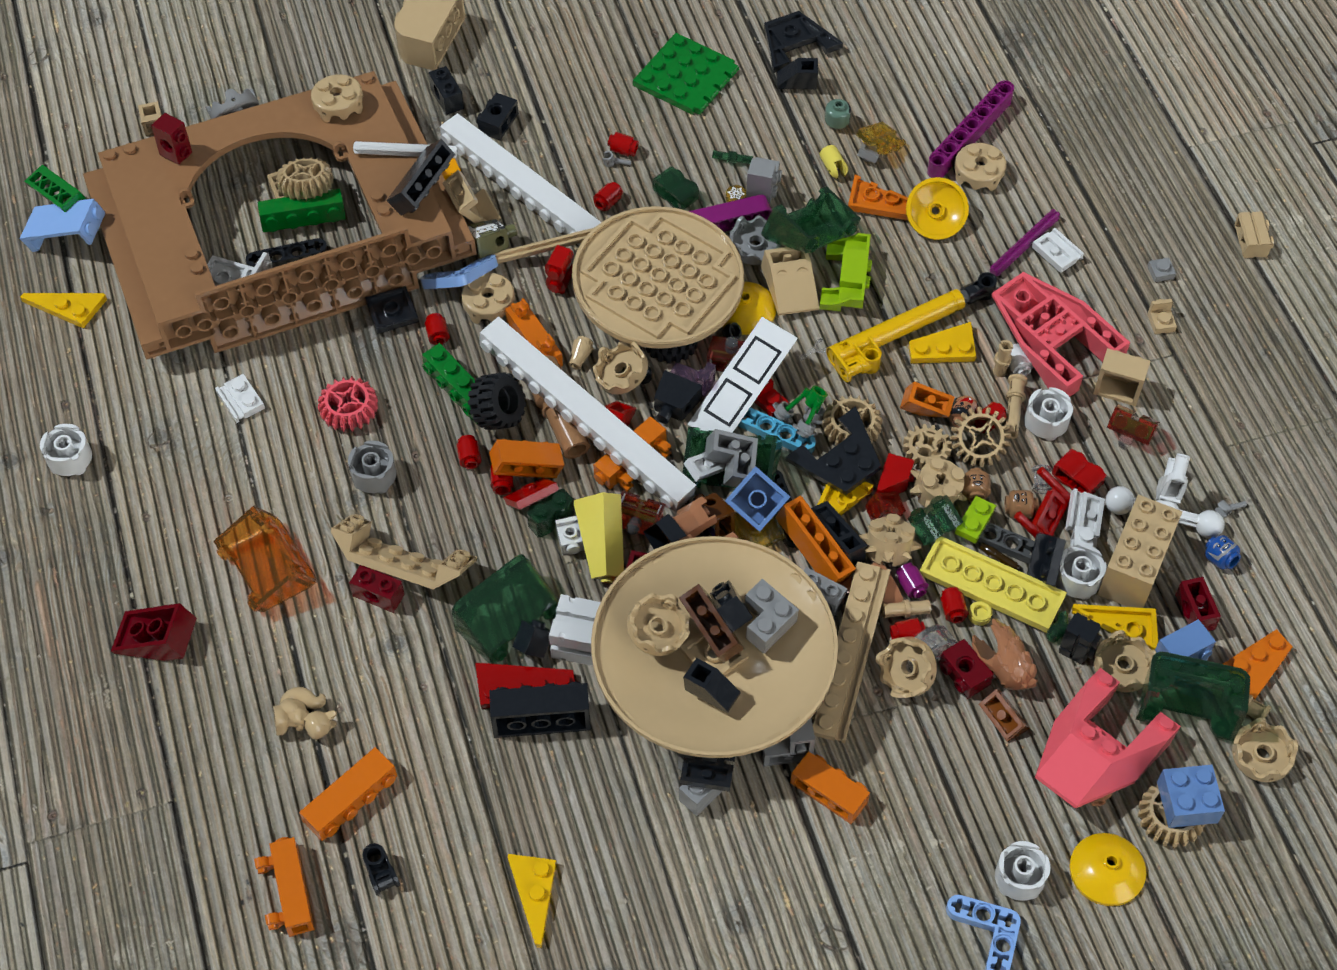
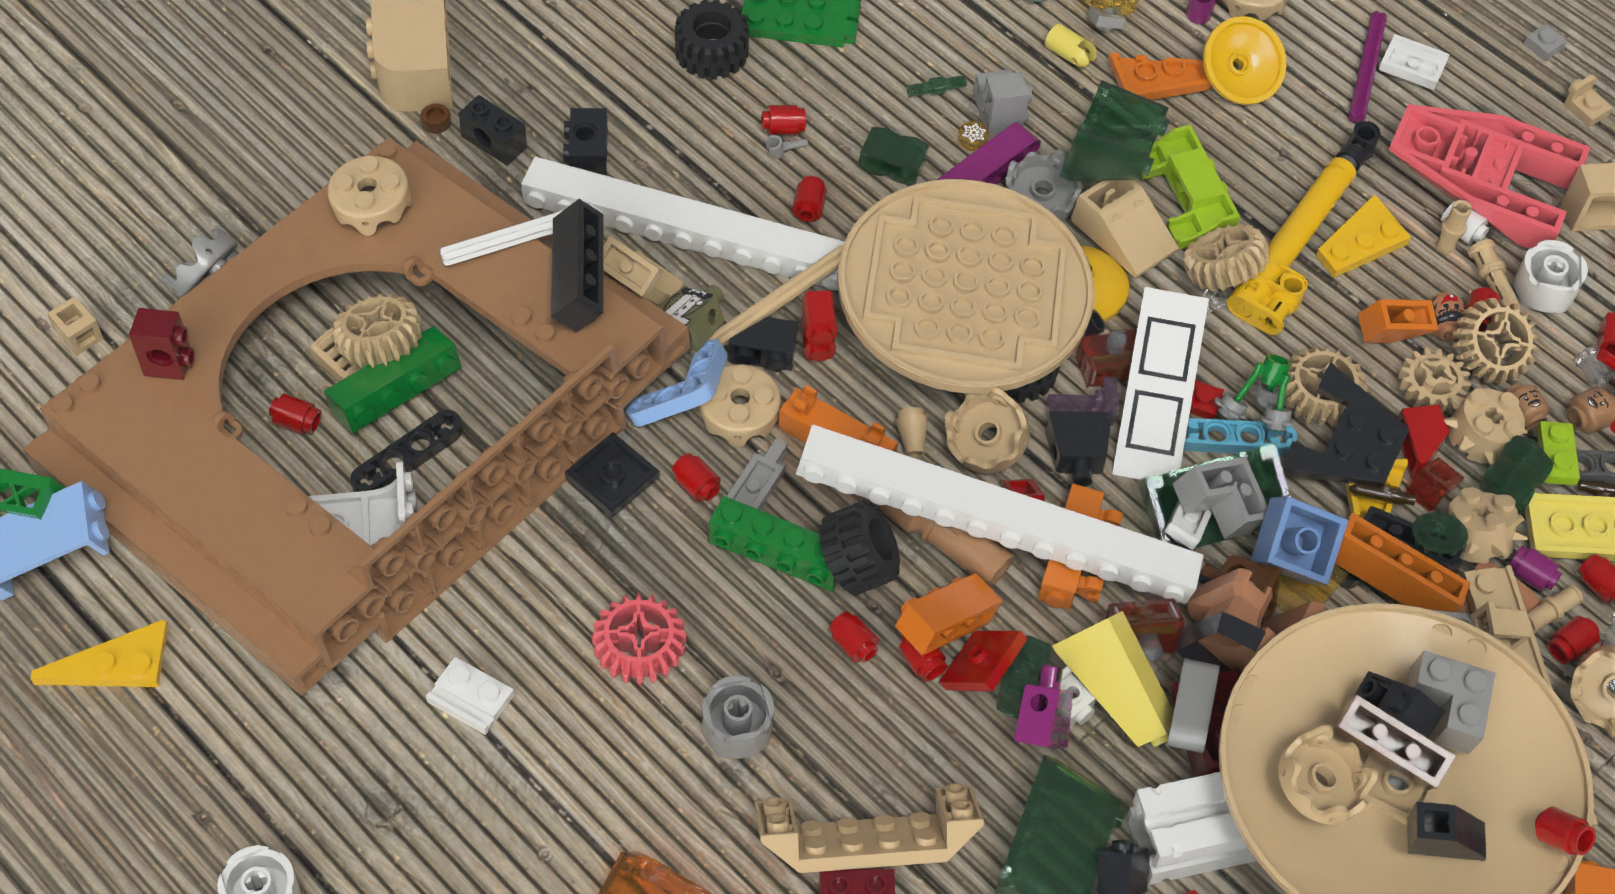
camera: 30 degrees left, 0 degrees up
(238, 210) = (295, 414): none -> red brick
(420, 73) = (435, 118): none -> reddish brown tile
(466, 346) = (760, 476): none -> light grey hinge
(525, 269) = (766, 344): none -> black slope
(542, 534) = (1042, 723): none -> magenta torso
(609, 81) = (707, 22): none -> black tyre
(625, 558) = (1193, 705): none -> light grey beam
(781, 714) = (1564, 831): none -> red brick
(839, 322) = (1226, 257): none -> tan gear
(842, 497) = (1383, 493): none -> dark brown piece
(851, 599) = (1503, 623): none -> tan brick
(860, 527) = (1443, 524): none -> clear green gear

